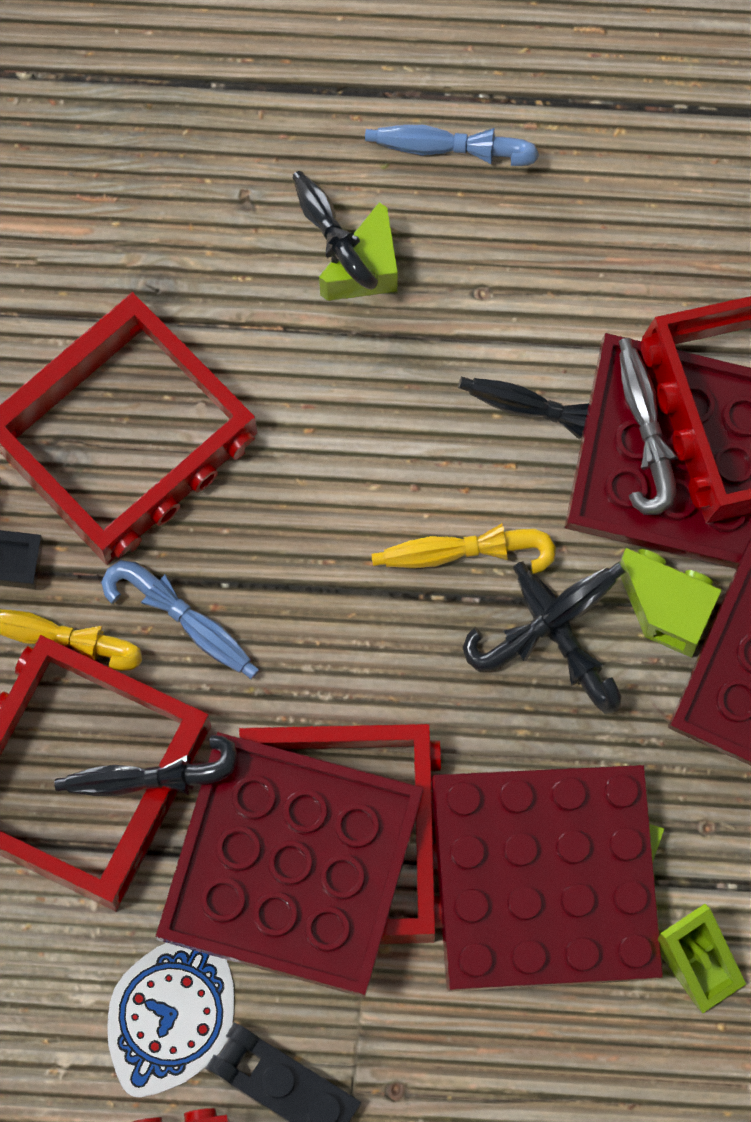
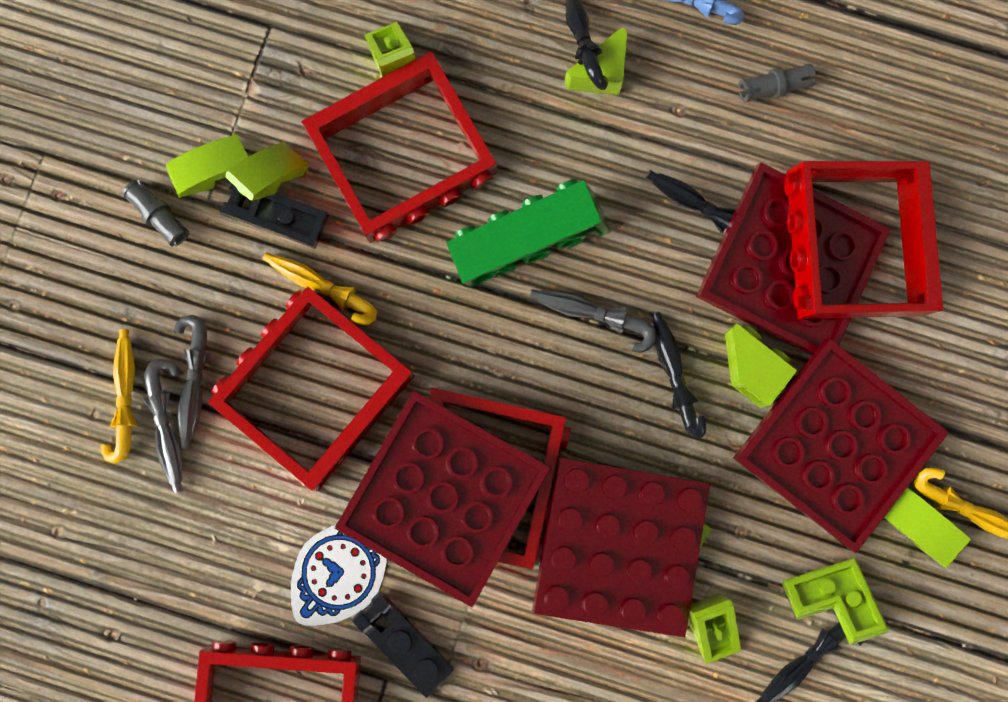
camera: 10 degrees right, 10 degrees up
(74, 302) = (389, 48): none -> lime slope
(160, 594) = (400, 274): medium blue piece -> none
(178, 775) = (378, 416): black piece -> none
(319, 497) = (527, 232): none -> green wedge
(440, 550) = (605, 290): yellow piece -> none
(467, 583) = (617, 318): none -> dark grey piece
(565, 608) = (683, 356): black piece -> none
(604, 226) = (777, 83): none -> dark grey pin
(657, 454) = (775, 219): flat silver piece -> none

